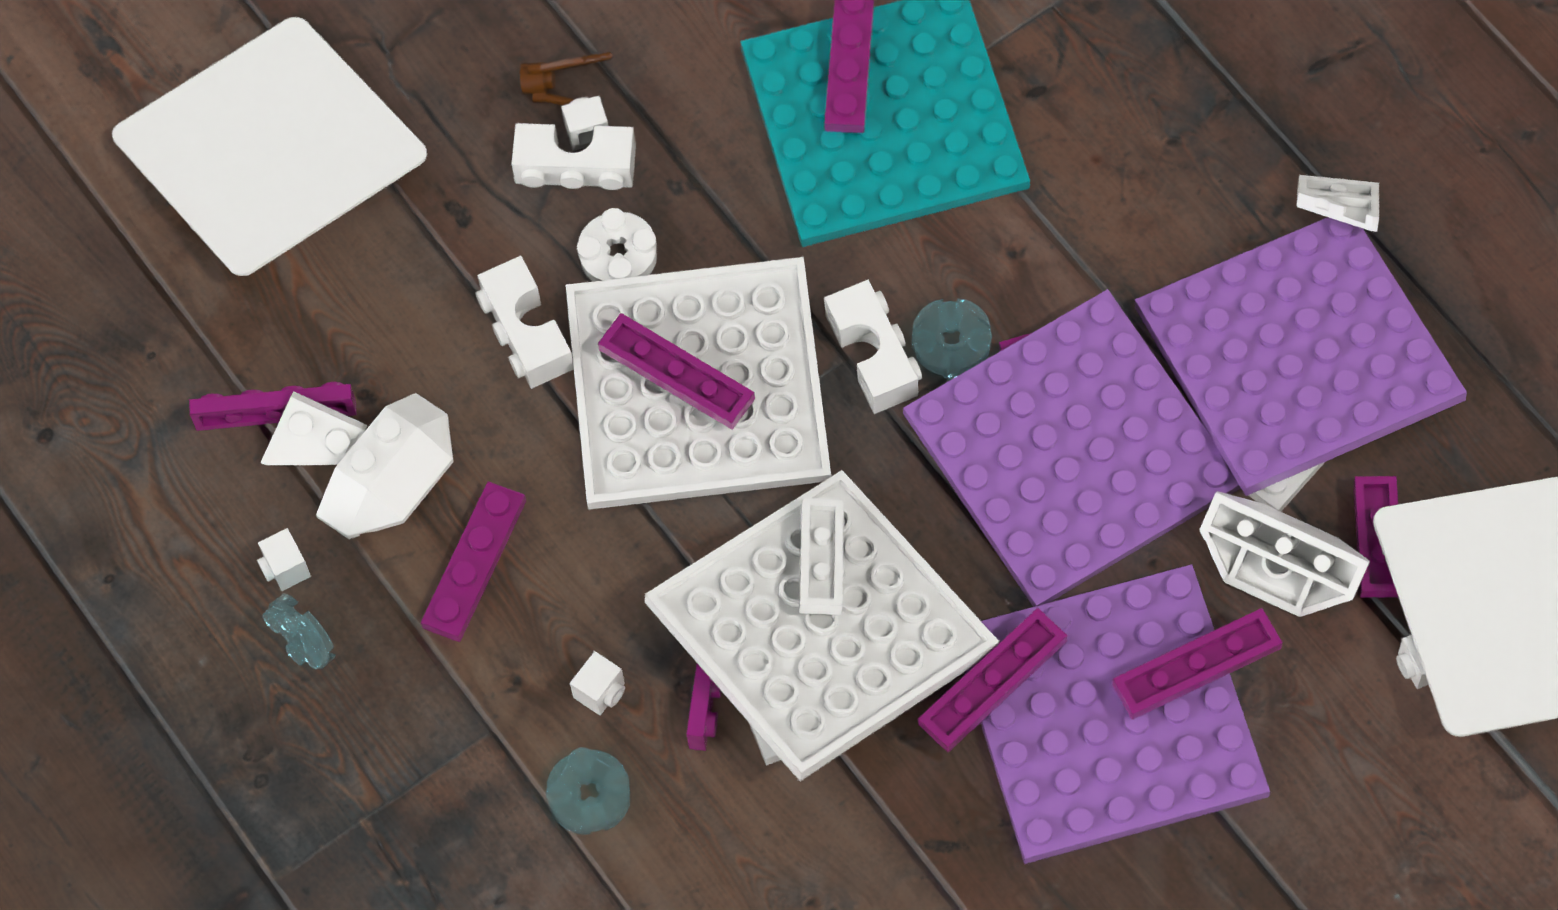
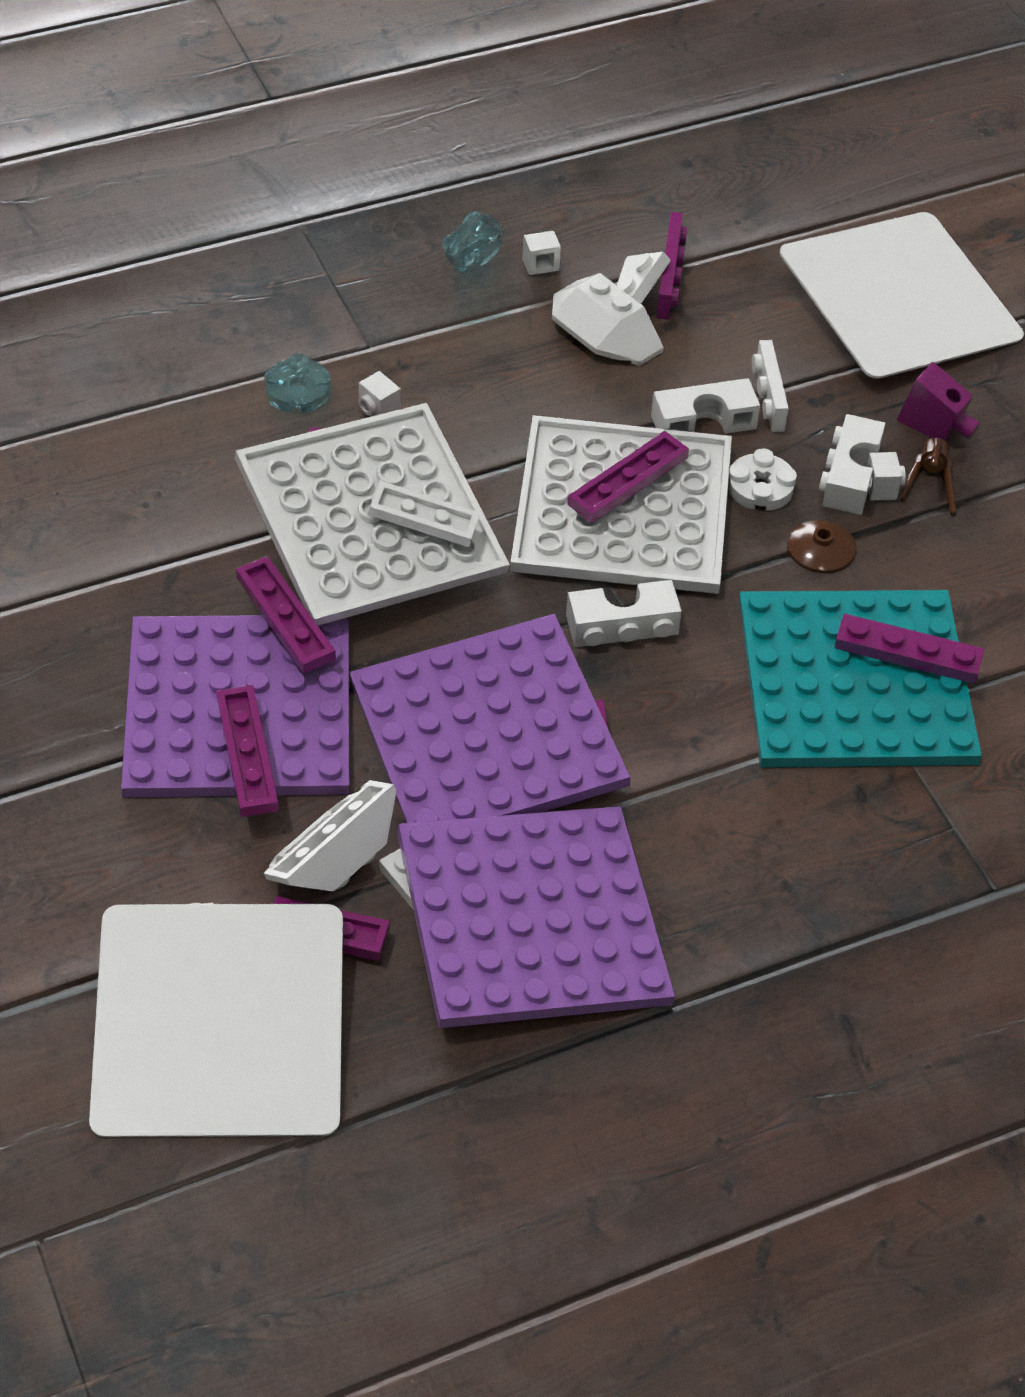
camera: 95 degrees right, 15 degrees down
(464, 259) = (770, 386): none -> white plate
(466, 80) = (938, 406): none -> magenta torso
(473, 561) = (510, 356): magenta plate -> none
(701, 191) = (821, 546): none -> reddish brown dish
(951, 316) = (619, 688): clear light blue plate -> none
(1341, 199) = (681, 986): white wing -> none

